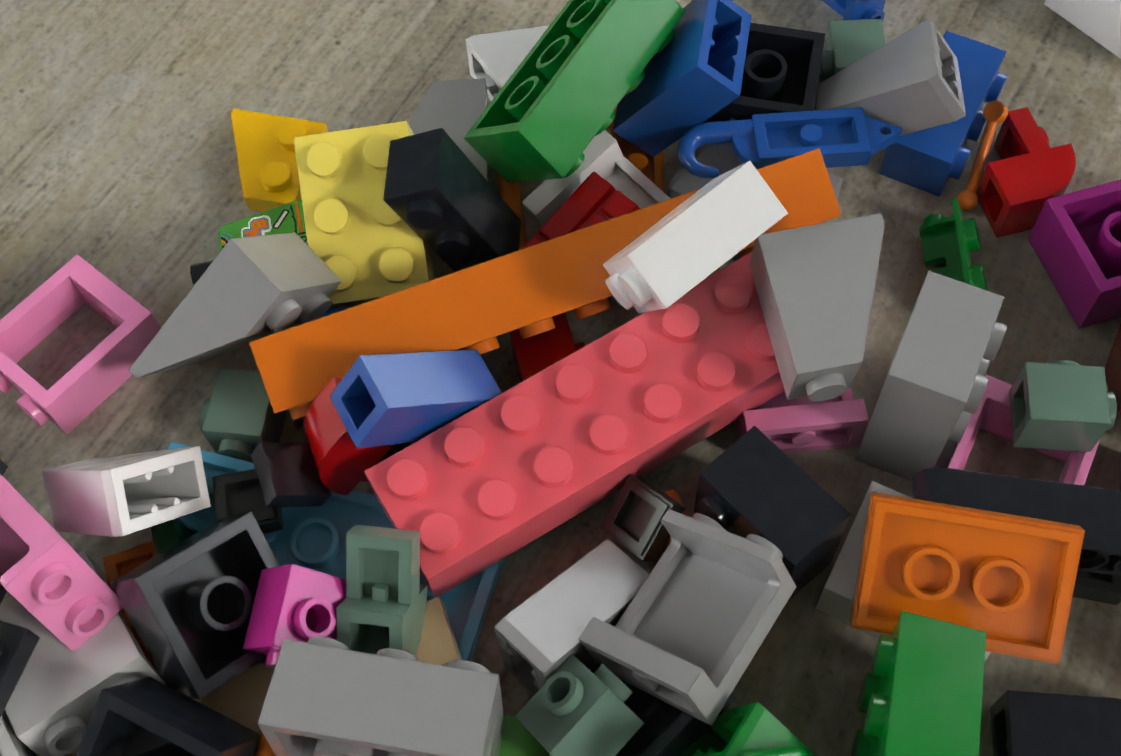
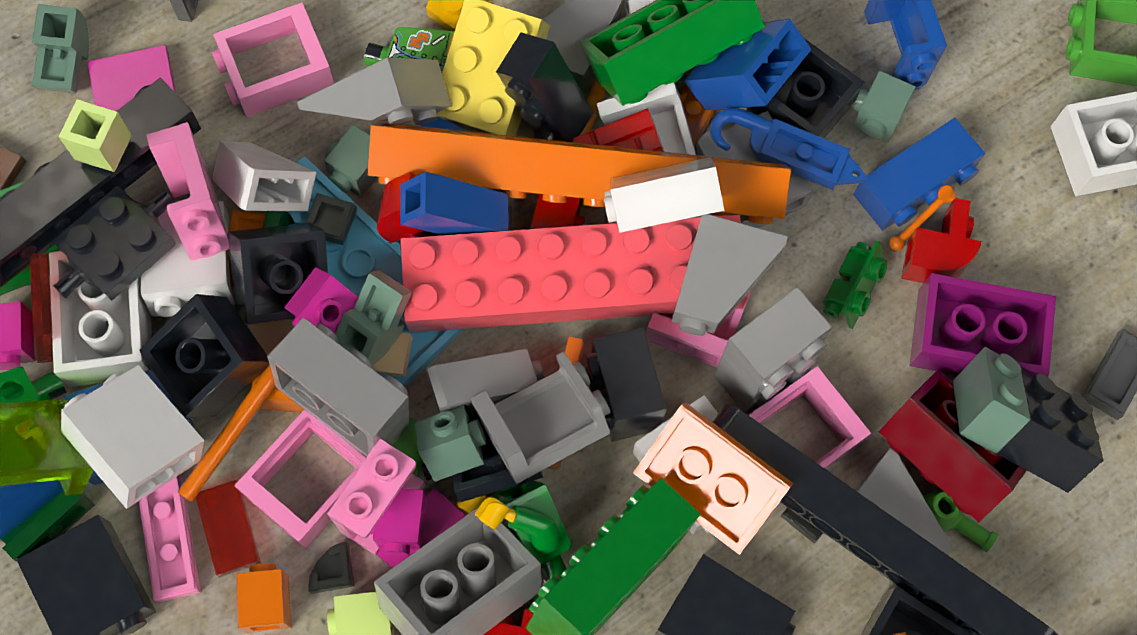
camera: 20 degrees right, 10 degrees up
(289, 475) = (360, 215): black tile -> none
(638, 516) = (550, 342): pearl dark grey tile -> none
(903, 83) = (888, 144): light grey slope -> none
(1060, 406) = (843, 409): sand green brick -> none

